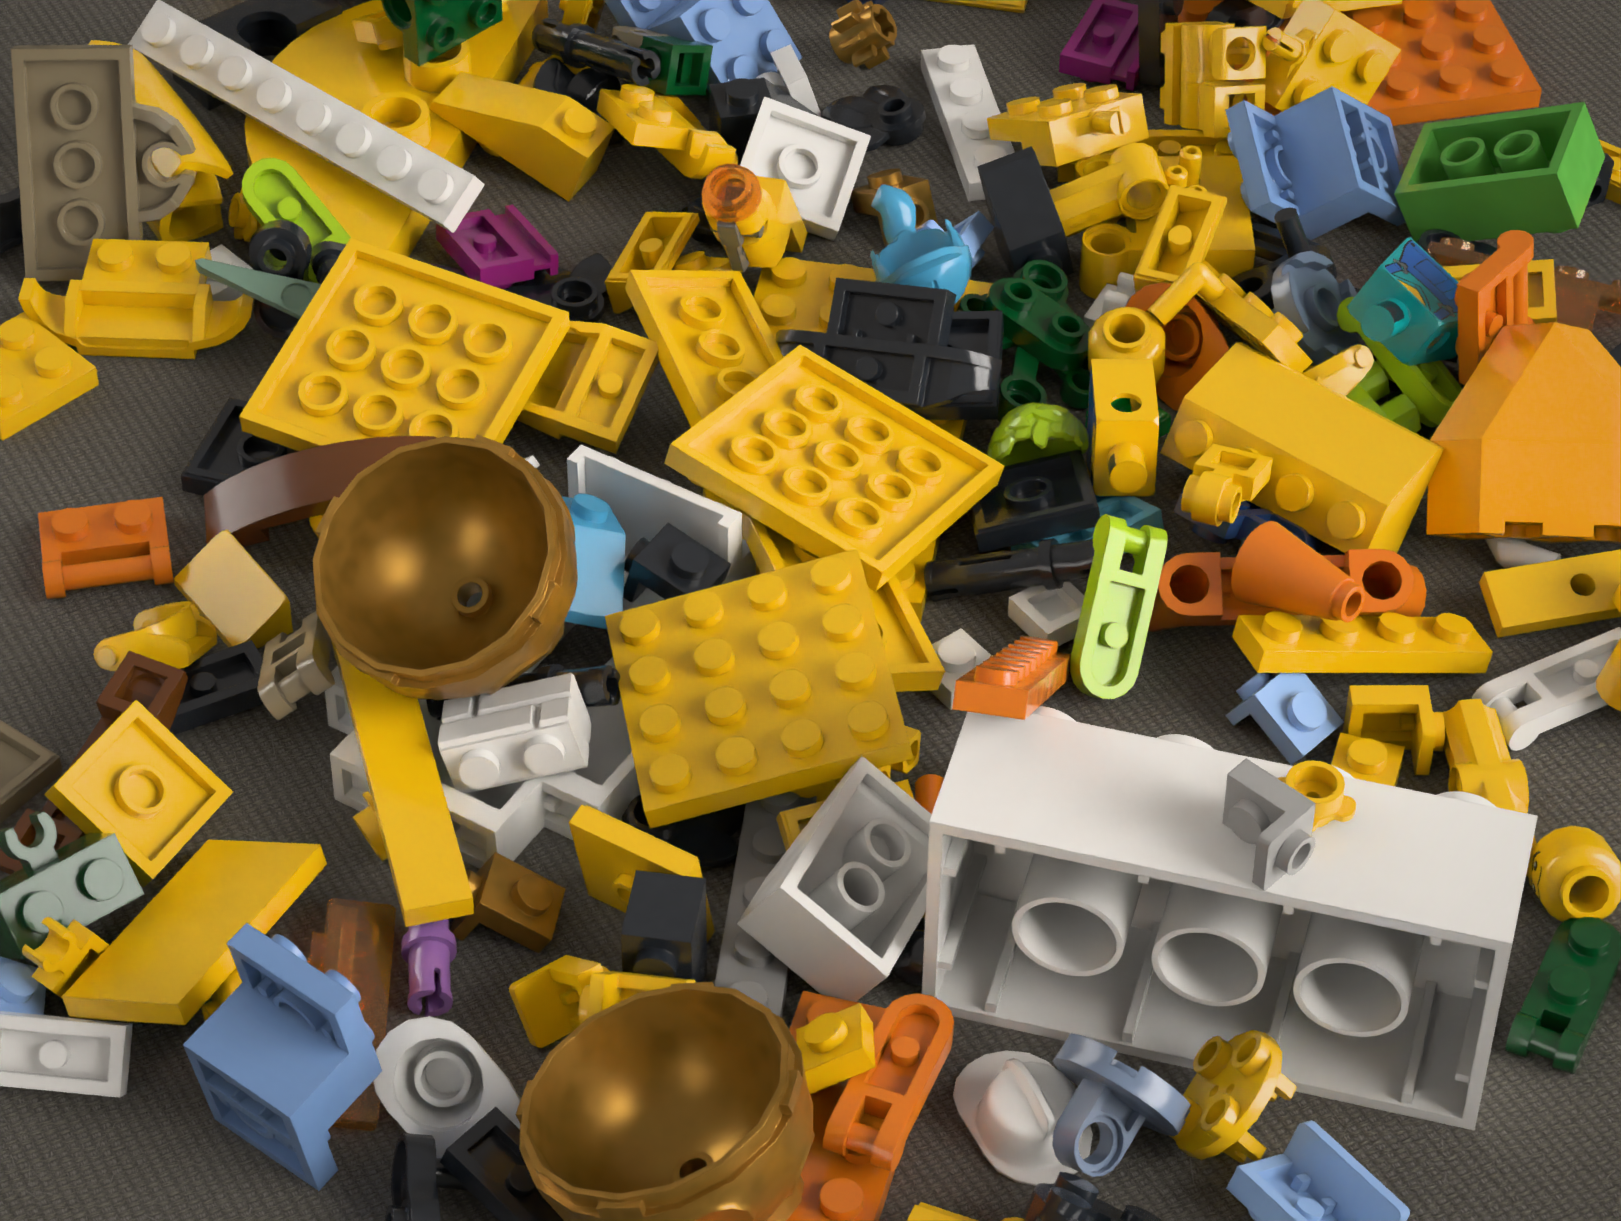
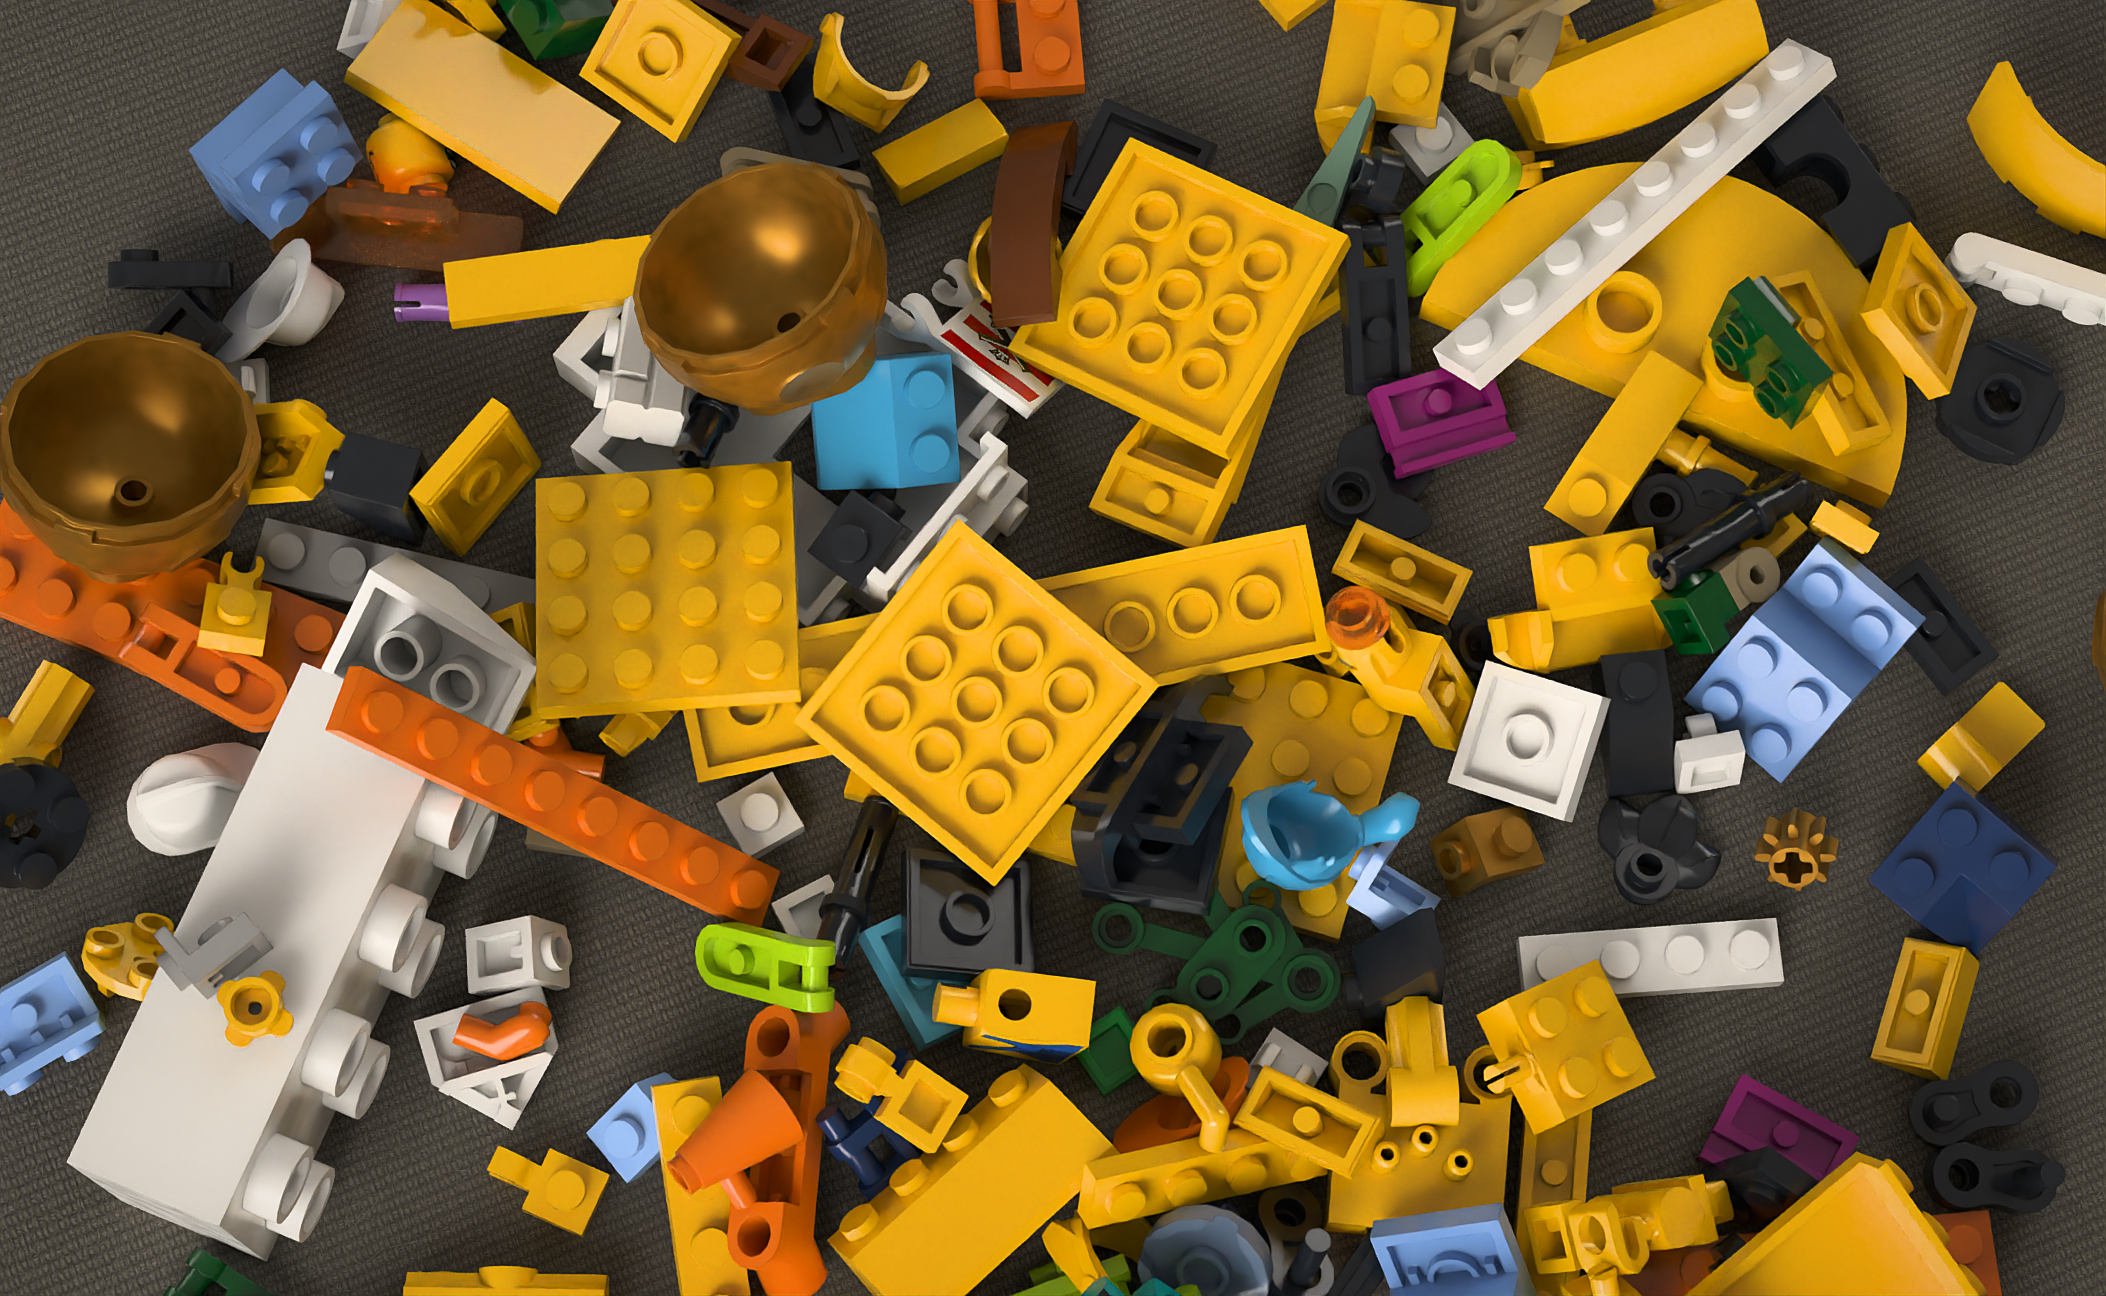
camera: 95 degrees right, 30 degrees up
(512, 903) = (499, 367): pearl gold bracket -> none
(551, 998) = (370, 406): yellow bracket -> none
(1036, 432) = (1051, 931): lime hair -> none
(1114, 1099) = (150, 859): sand blue tile -> none
(1398, 717) = (621, 1220): yellow bracket -> none

